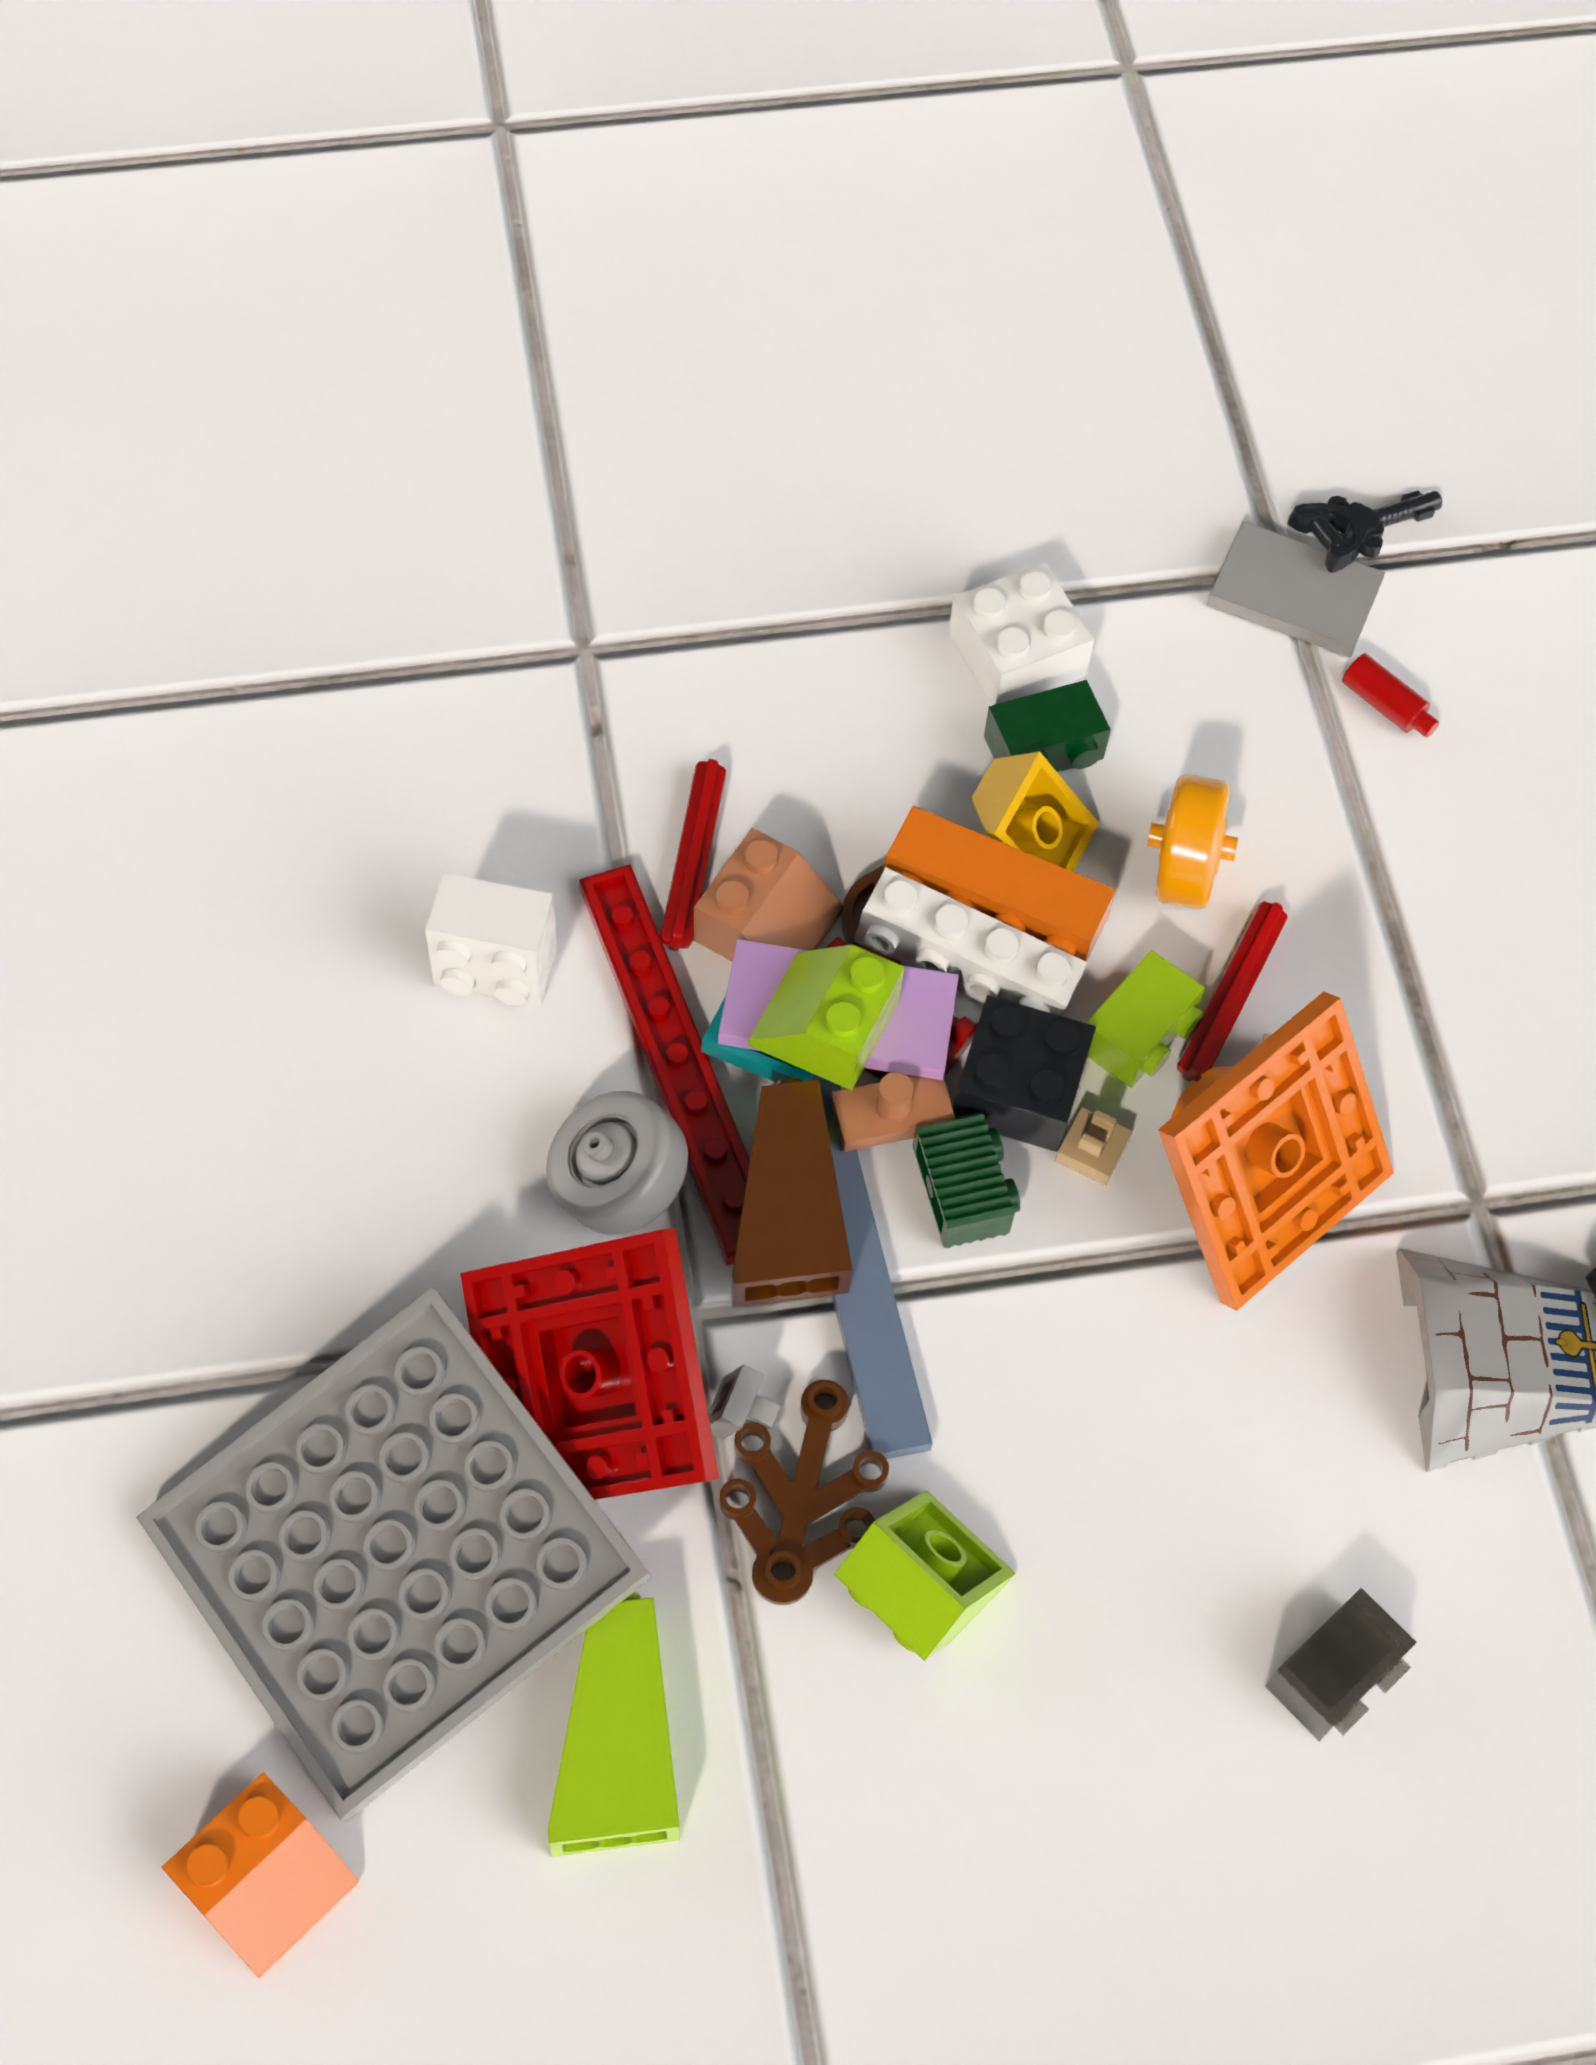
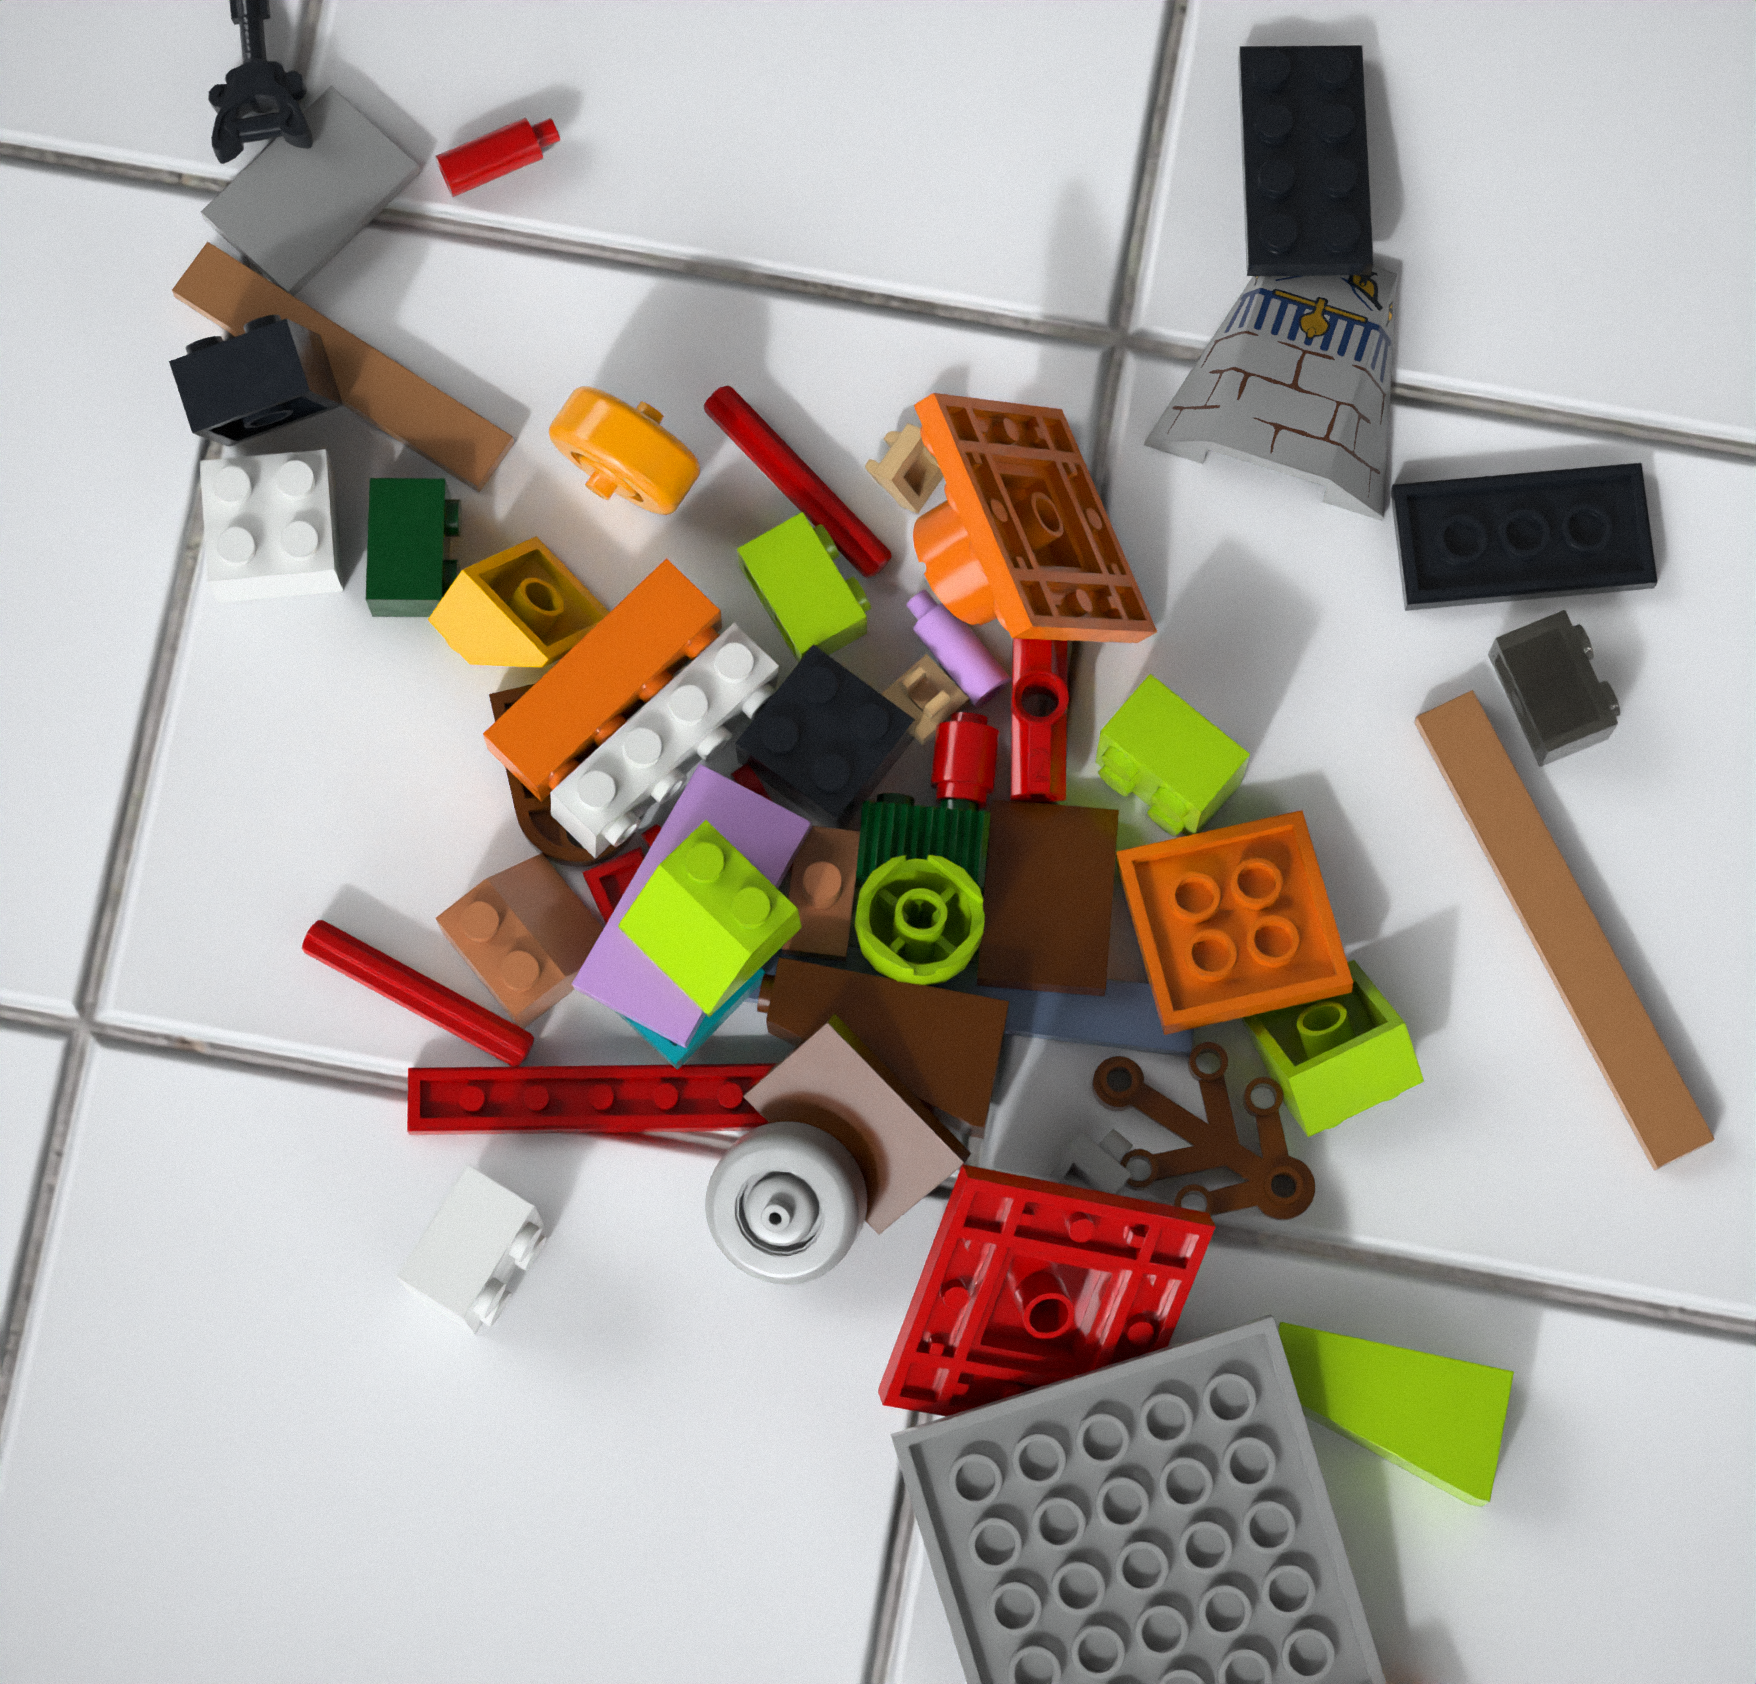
camera: 65 degrees left, 15 degrees up
(723, 1168) = (860, 1102): none -> tile
(894, 1176) = (919, 919): none -> lime cylinder
(962, 1292) = (1048, 898): none -> reddish brown tile
(1003, 1449) = (1233, 922): none -> orange plate
(1055, 1187) = (965, 758): none -> red brick
(1095, 1241) = (1039, 742): none -> red piece
(1115, 1759) = (1564, 931): none -> medium nougat tile
(1122, 1340) = (1170, 759): none -> lime brick
(1124, 577) = (255, 380): none -> black brick
(1141, 1161) = (958, 650): none -> lavender cylinder
(1169, 655) = (365, 377): none -> medium nougat tile
(1472, 1600) = (1523, 536): none -> black tile

